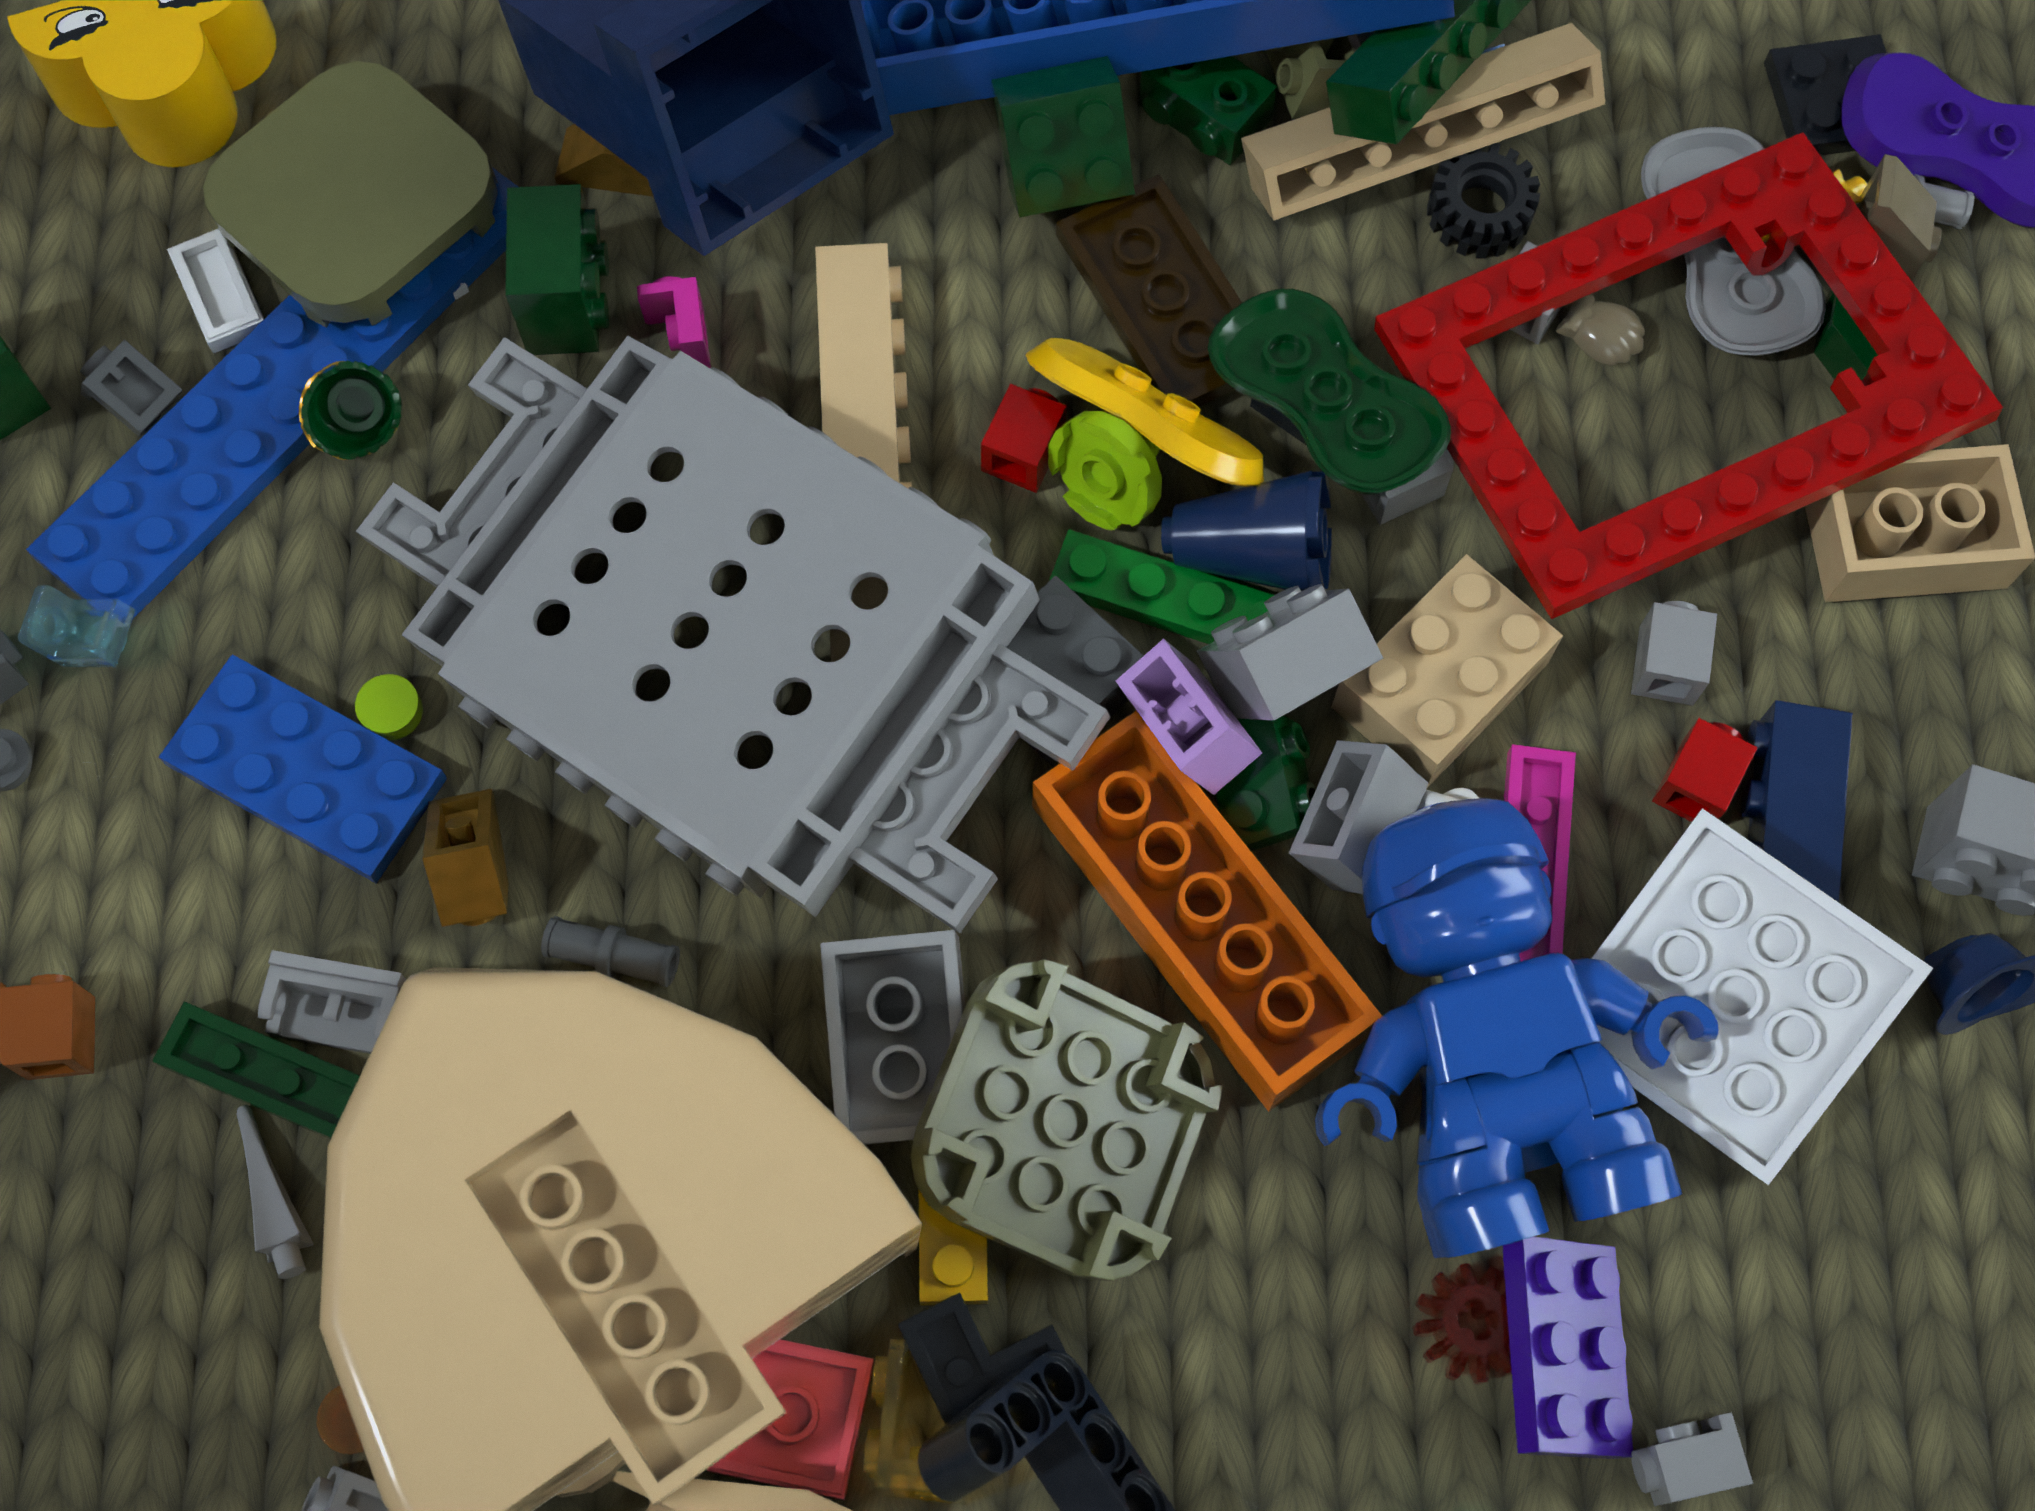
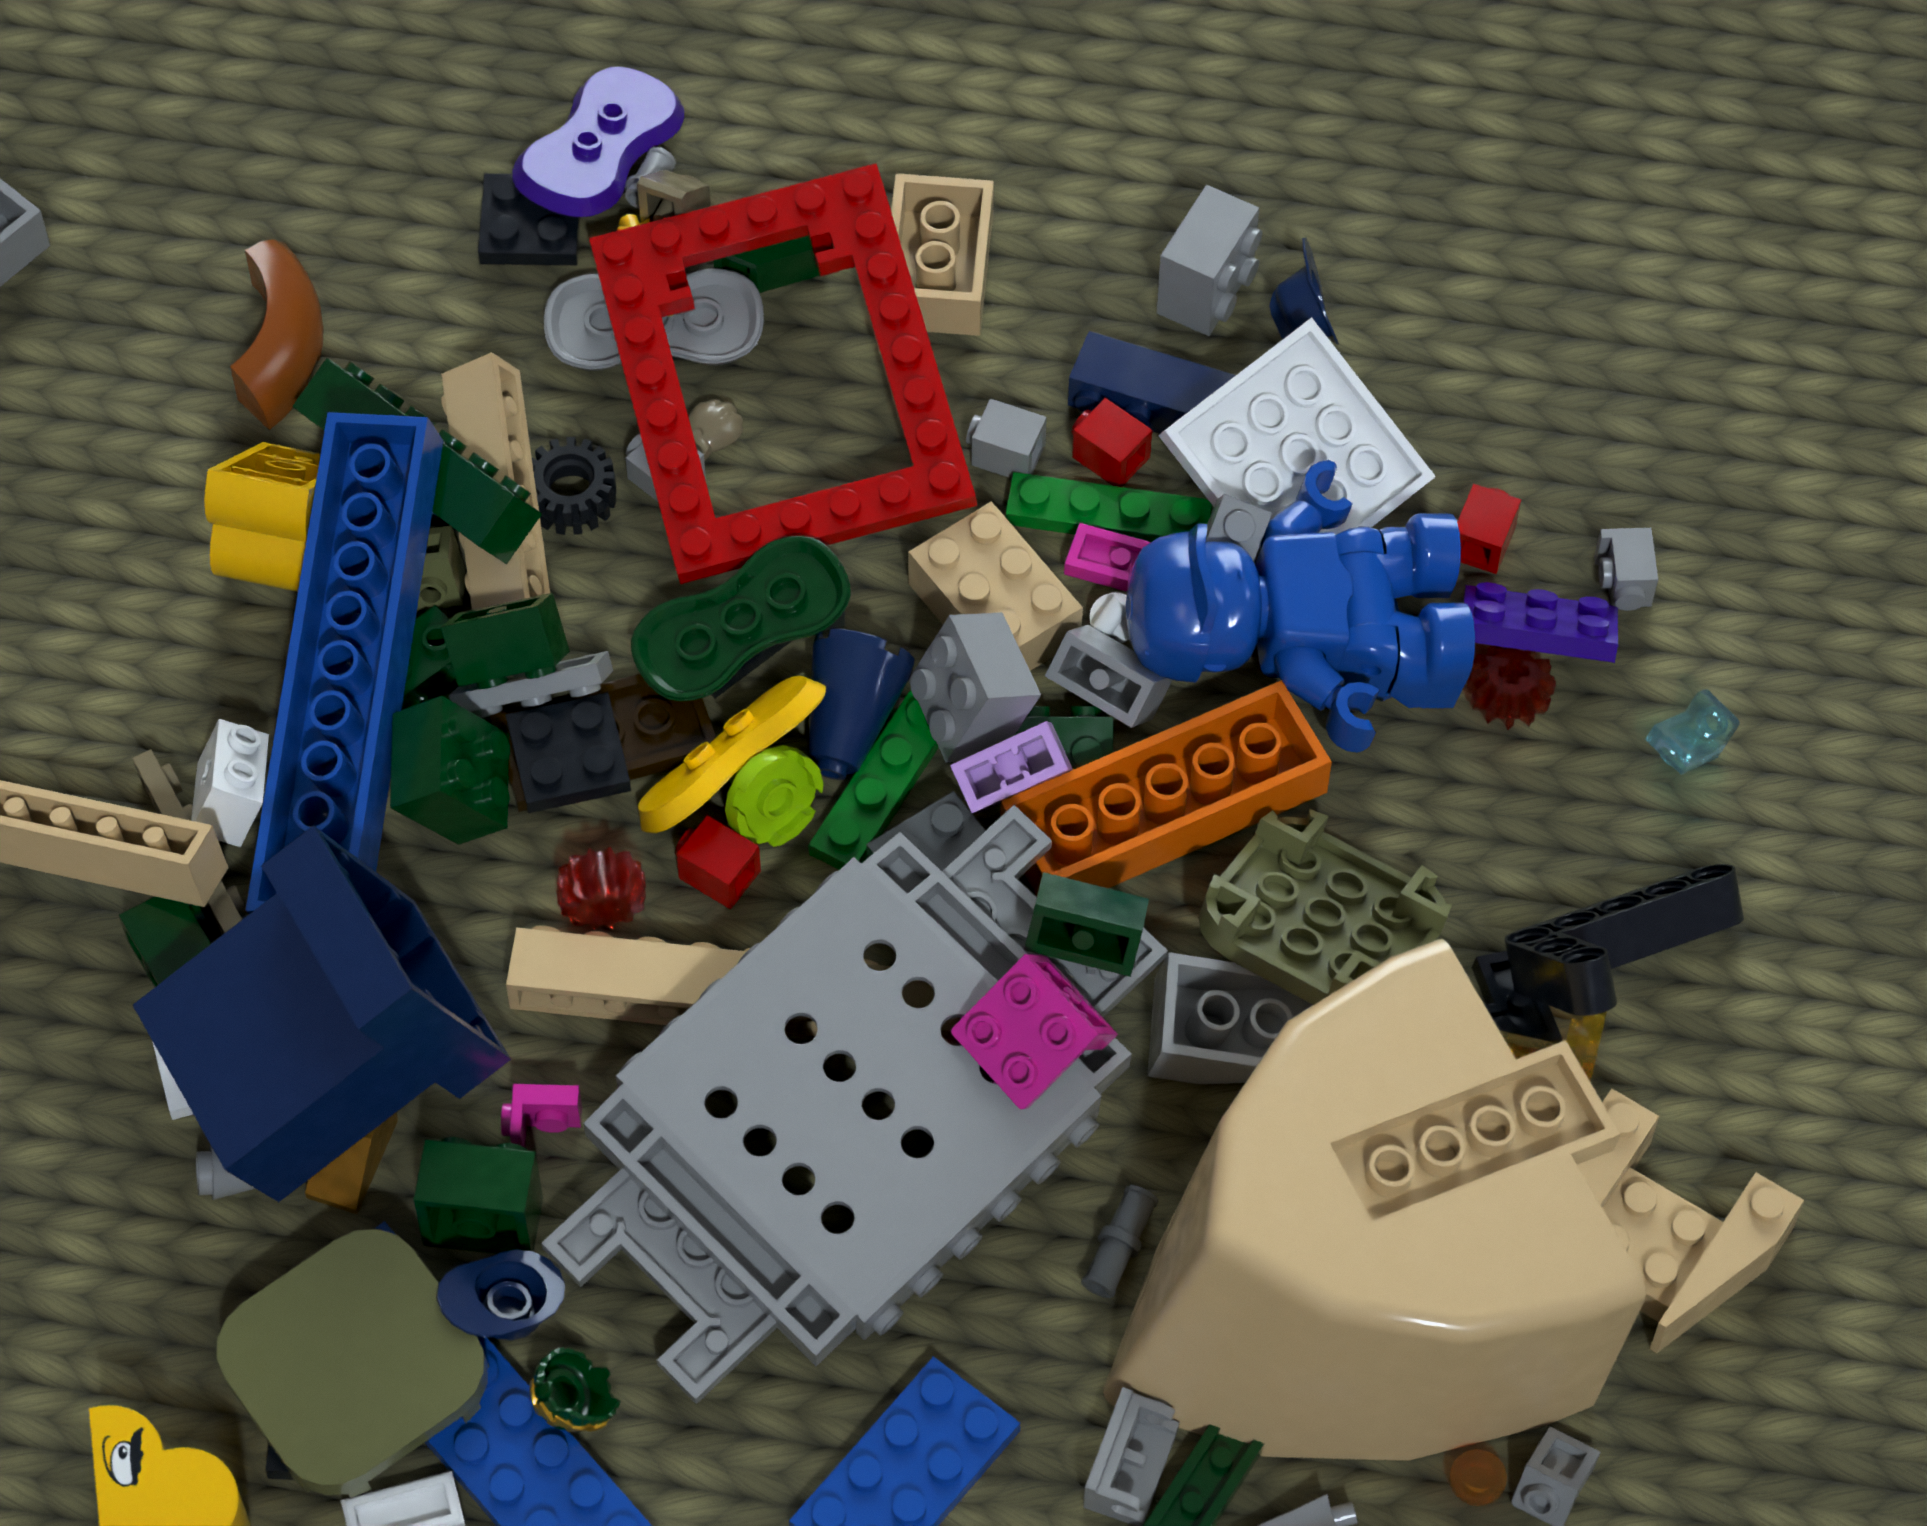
camera: 80 degrees left, 10 degrees down
(389, 706) = (861, 1398): lime tile -> none
(437, 308) = (501, 1294): none -> dark blue piece
(466, 859) = (1018, 1339): pearl gold slope -> none
(801, 780) = (1031, 1029): none -> dark pink bracket
(942, 811) = (1086, 924): none -> dark green brick
(957, 320) = (601, 888): none -> clear red gear
(1123, 255) = (568, 753): none -> black plate
(1201, 203) = (577, 675): none -> light grey plate
(1226, 146) = (506, 641): none -> dark green brick
(1588, 923) = (1237, 523): none -> light grey brick
(1609, 788) = (1065, 503): none -> green plate
(1706, 1260) = (1487, 527): none -> red brick

